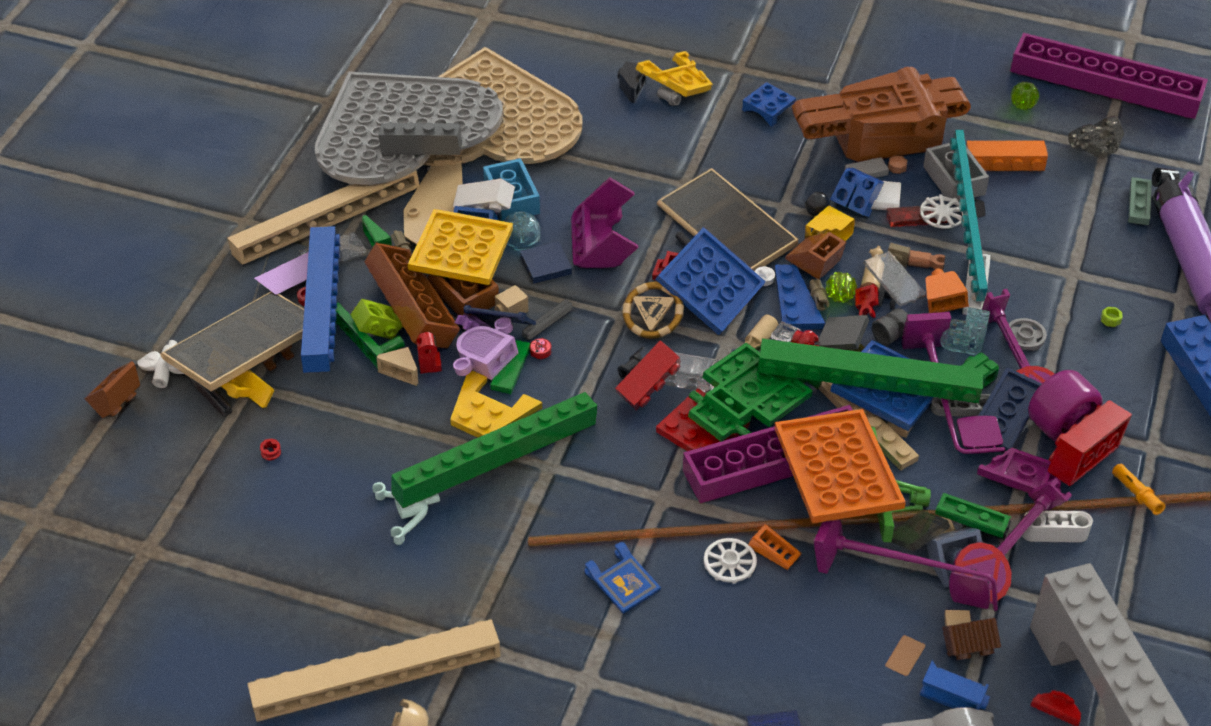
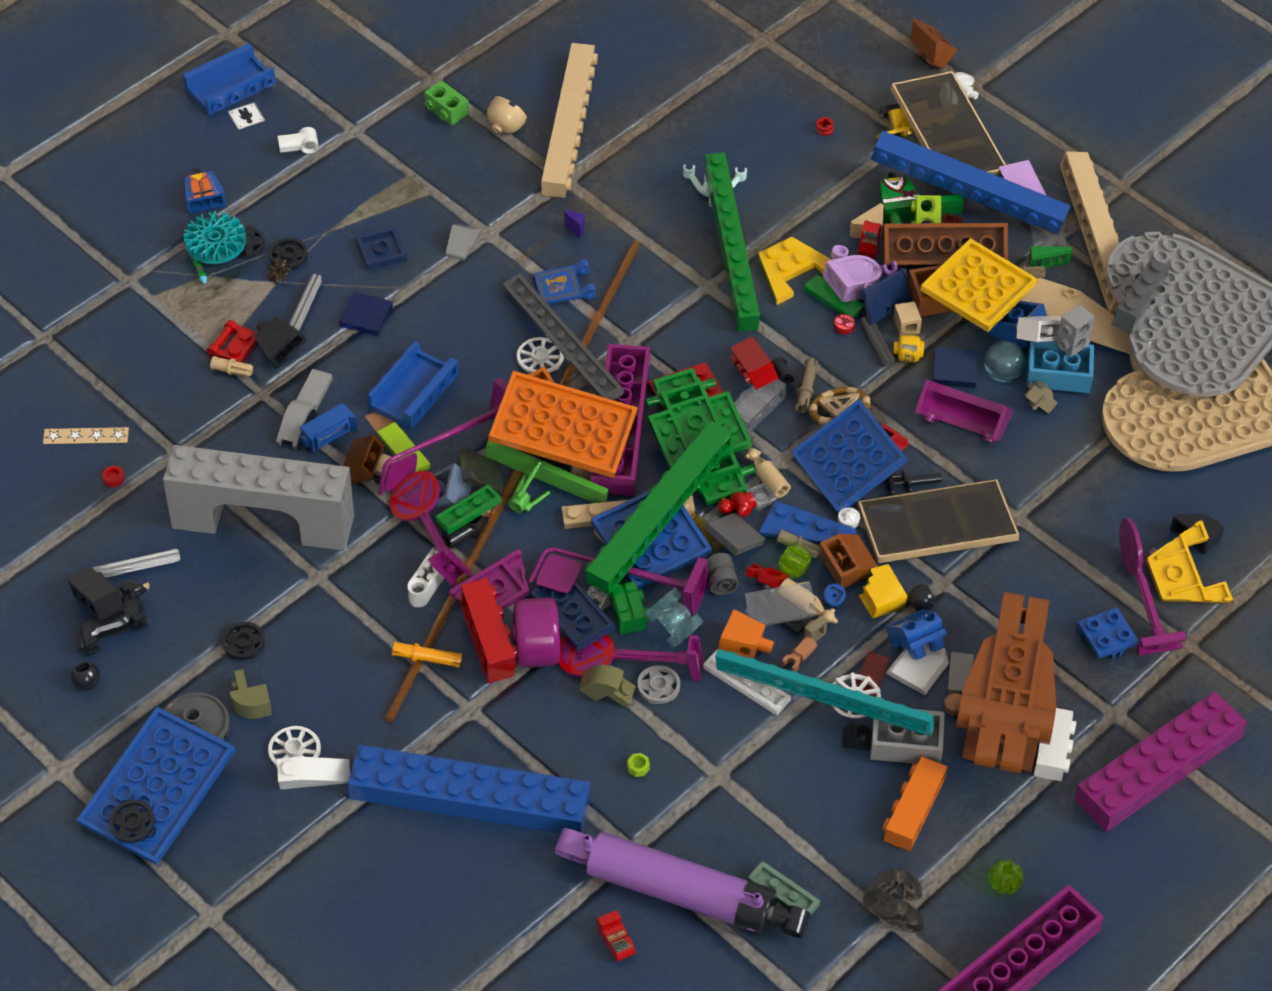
camera: 115 degrees right, 5 degrees up
(352, 359) = (896, 189): none -> torso
(490, 161) = (1075, 330): none -> light grey brick
(535, 596) = (574, 222): none -> dark purple slope
(546, 292) = (909, 348): none -> yellow head
(550, 197) = (1040, 396): none -> dark tan piece
(615, 693) = (461, 241): none -> light grey slope
(631, 347) = (805, 391): none -> dark tan pin
(691, 91) = (1133, 559): none -> magenta piece
(711, 533) = (563, 338): none -> dark grey plate
(846, 642) = (411, 386): none -> blue panel
(852, 257) = (834, 595): none -> blue tile
(857, 46) = (1160, 761): none -> magenta brick
(926, 619) = (397, 442): none -> lime tile
(1063, 355) = (607, 681): none -> olive brick

